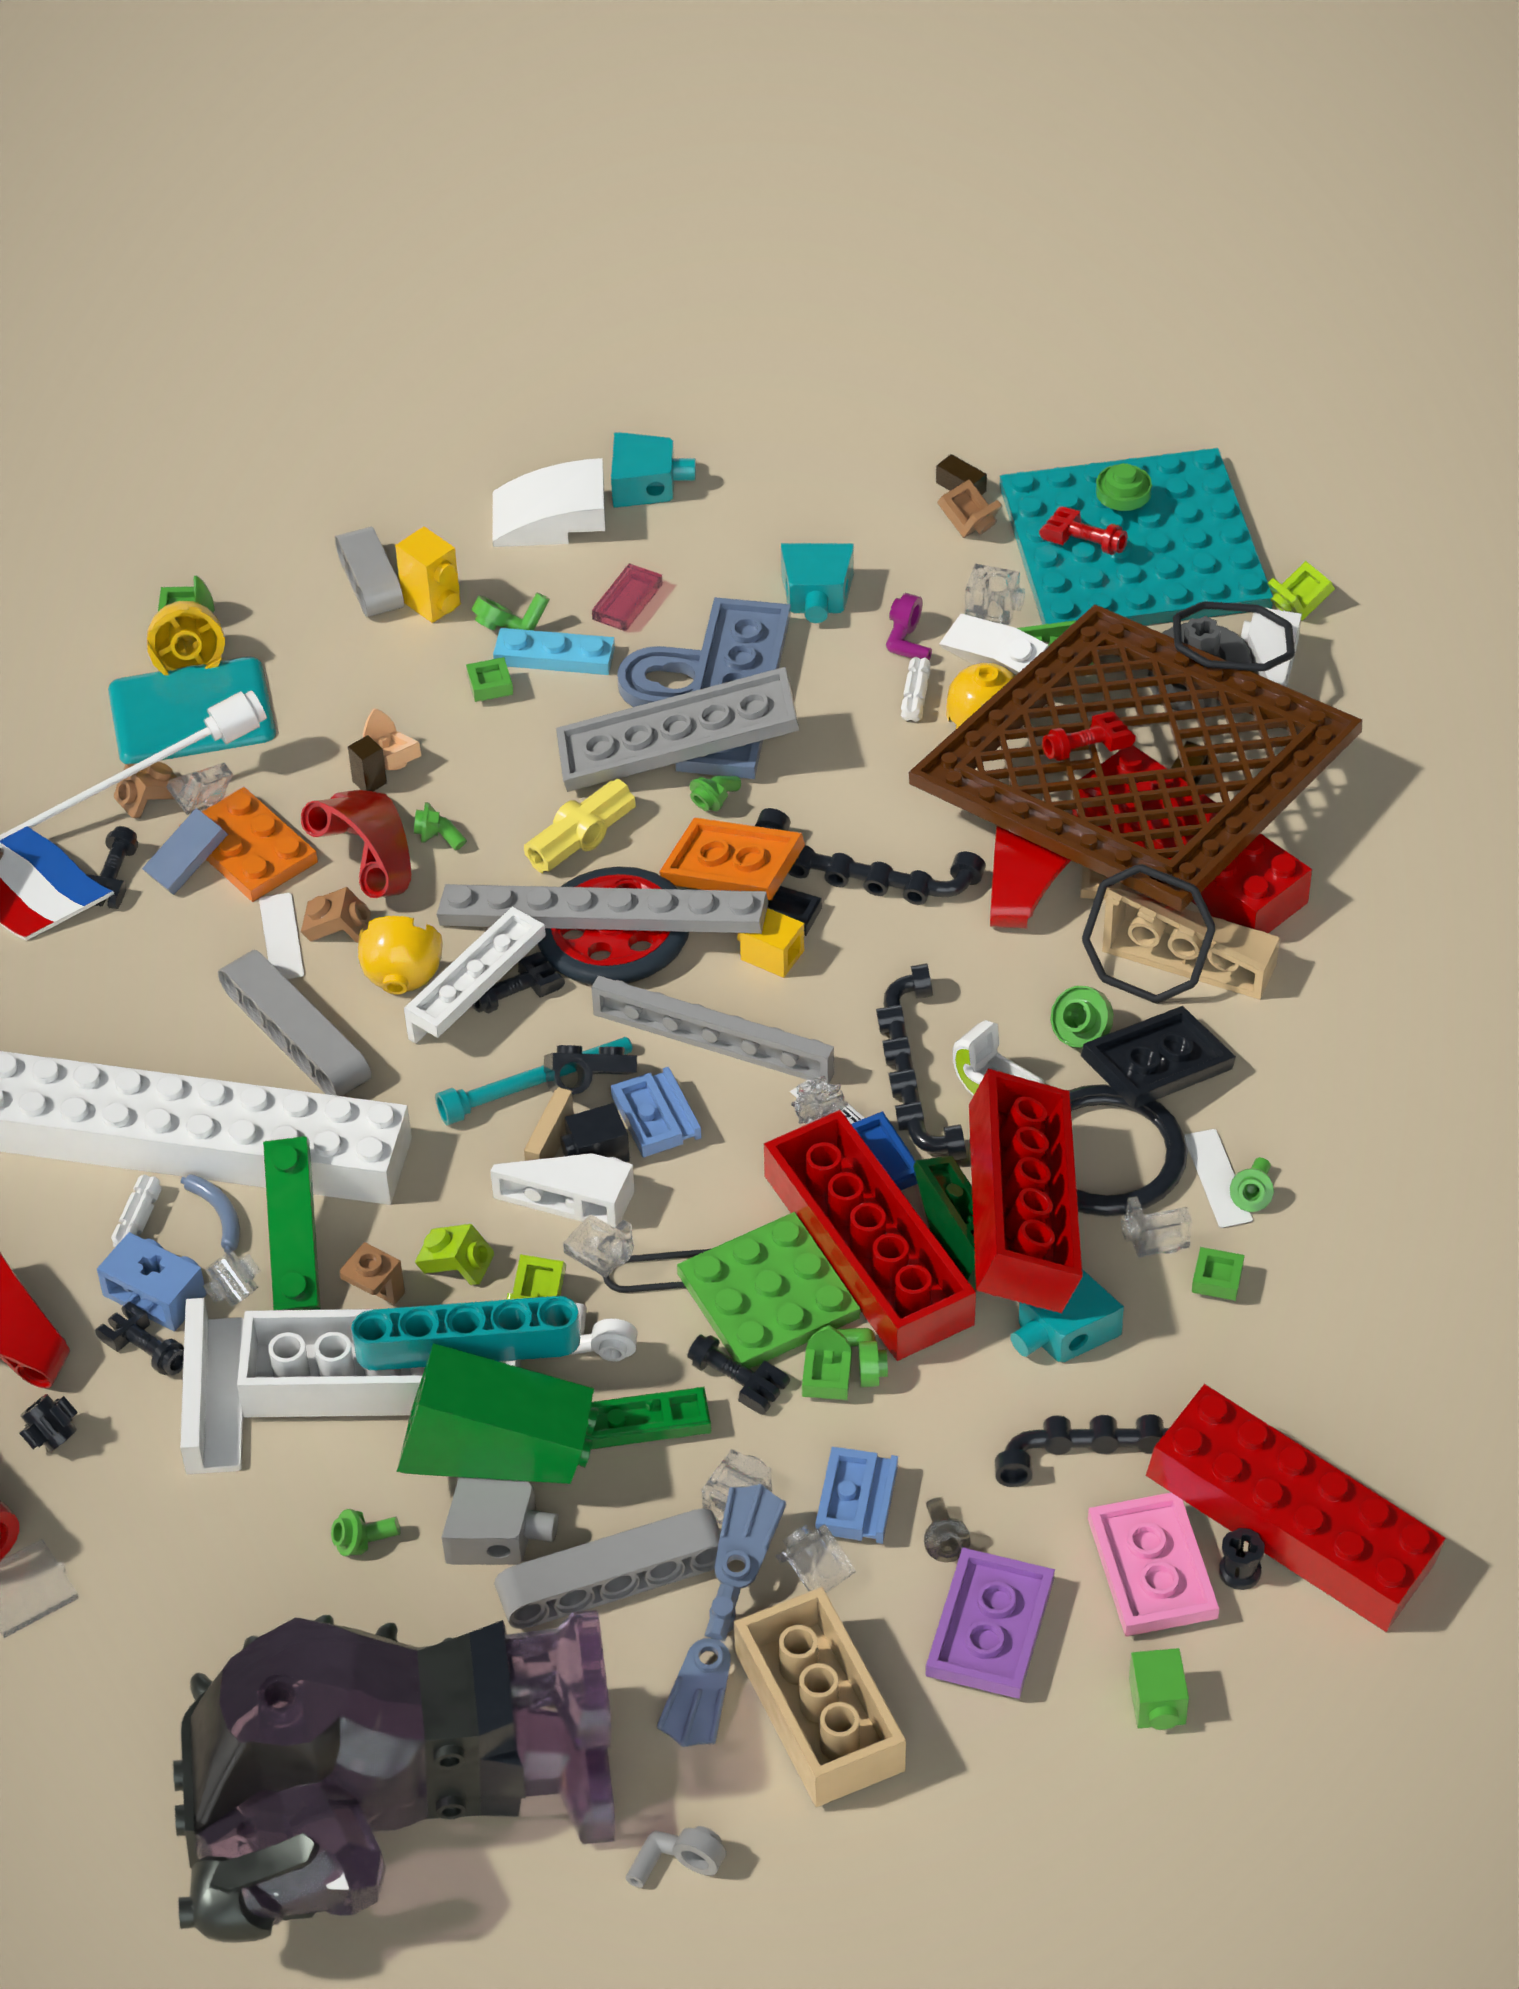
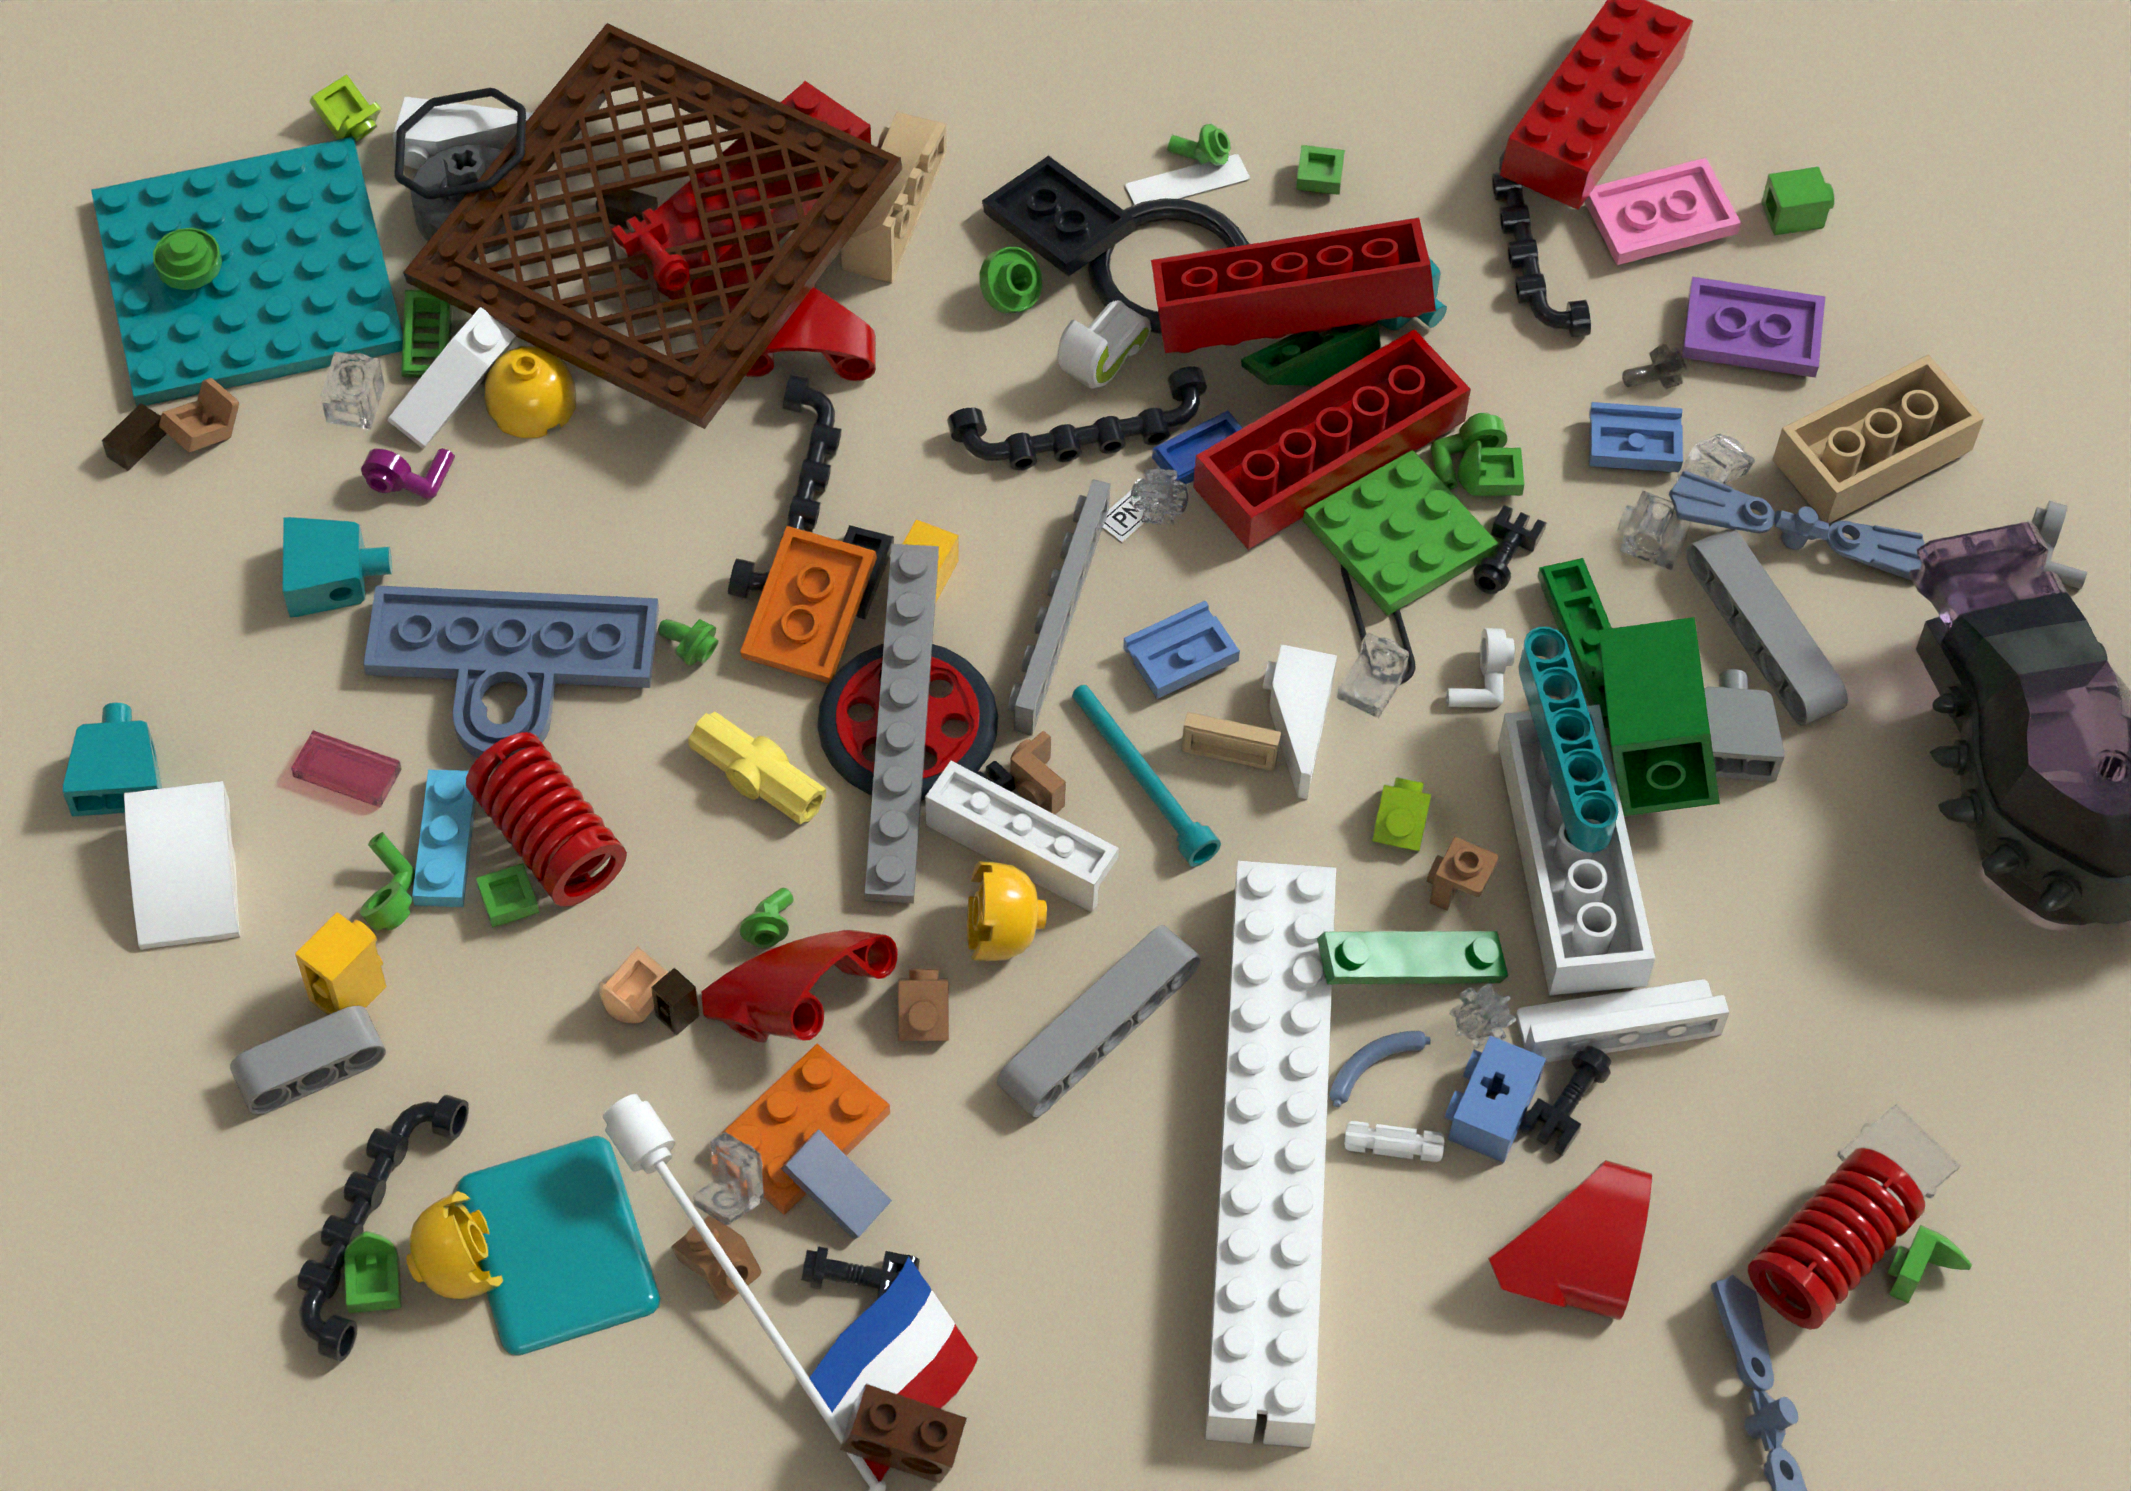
camera: 100 degrees left, 10 degrees up
(48, 1422) = (1718, 1155): black gear -> none
(281, 934) = (943, 1070): white sticker -> none
(300, 645) = (366, 1193): none -> black bar
(352, 1534) = (1769, 857): bright green plate -> none
(537, 997) = (1035, 779): none -> medium nougat bracket
(538, 1278) = (1442, 729): lime bracket -> none
(543, 689) = (545, 819): none -> red piece
(596, 1132) = (1231, 692): black brick -> none
(608, 1061) = (1141, 716): black plate -> none
(676, 729) = (614, 670): light grey plate -> none
(915, 689) = (506, 461): white axle -> none
(1067, 523) = (251, 315): red hinge -> none
(1158, 1231) = (1280, 212): clear bracket -> none
(1170, 880) = (867, 212): black piece -> none
(1247, 1561) = (1645, 151): black bush -> none

